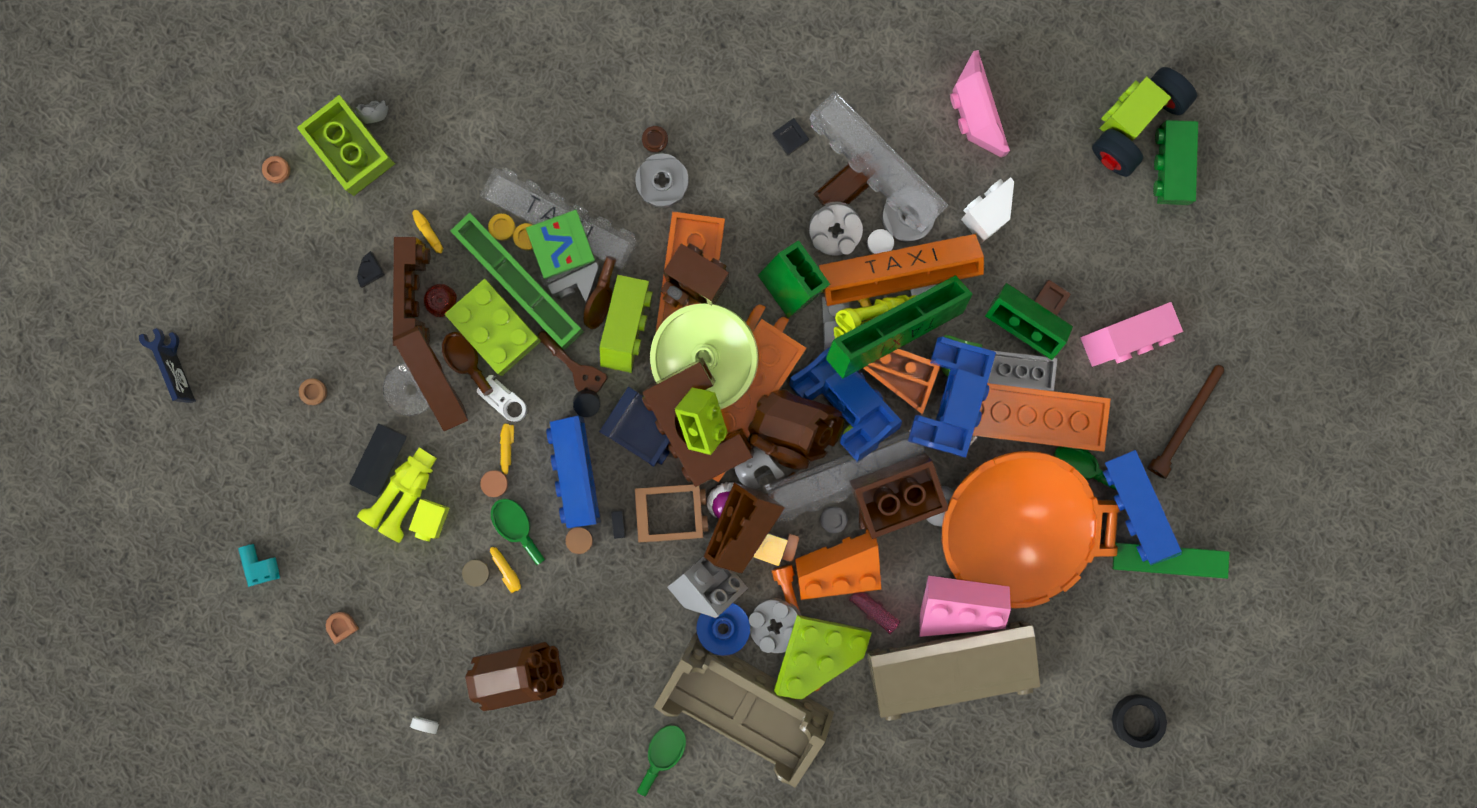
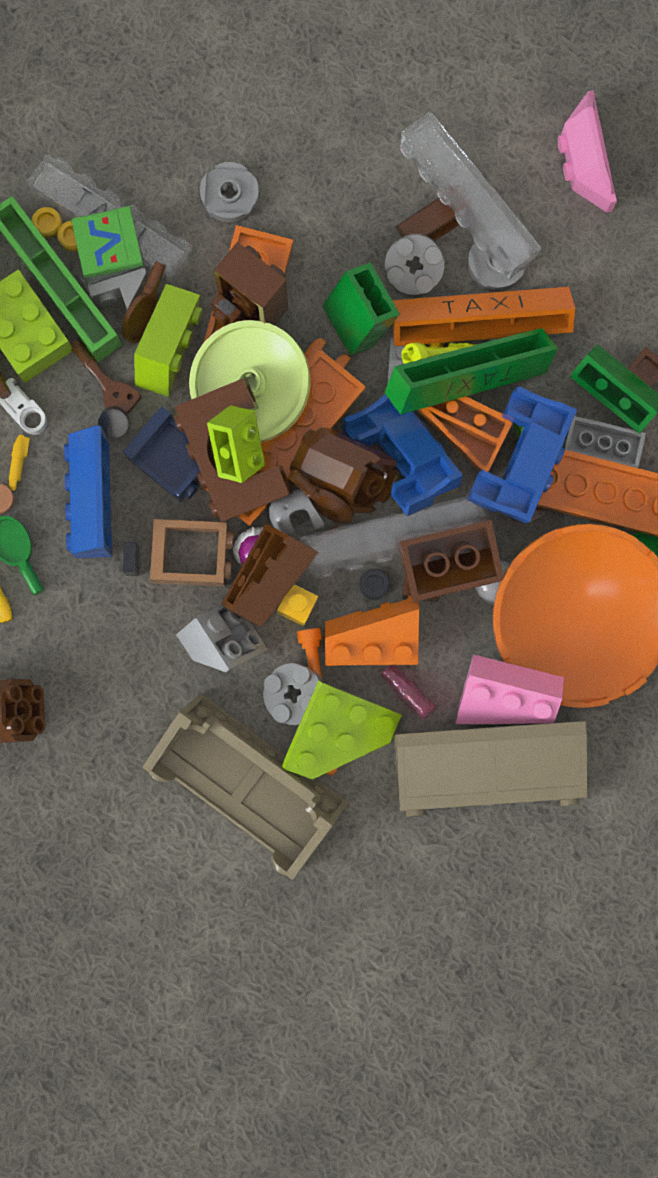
camera: 10 degrees right, 5 degrees down
(579, 540) = (84, 573): medium nougat tile -> none
(655, 139) = (227, 148): reddish brown plate -> none
(663, 753) = (147, 824): green piece -> none
(726, 643) = (243, 677): blue dish -> none
(790, 136) = (377, 162): black tile -> none
(791, 547) = (321, 607): nougat tile -> none
(880, 241) = (462, 284): white tile -> none
(991, 213) = (587, 263): white slope -> none

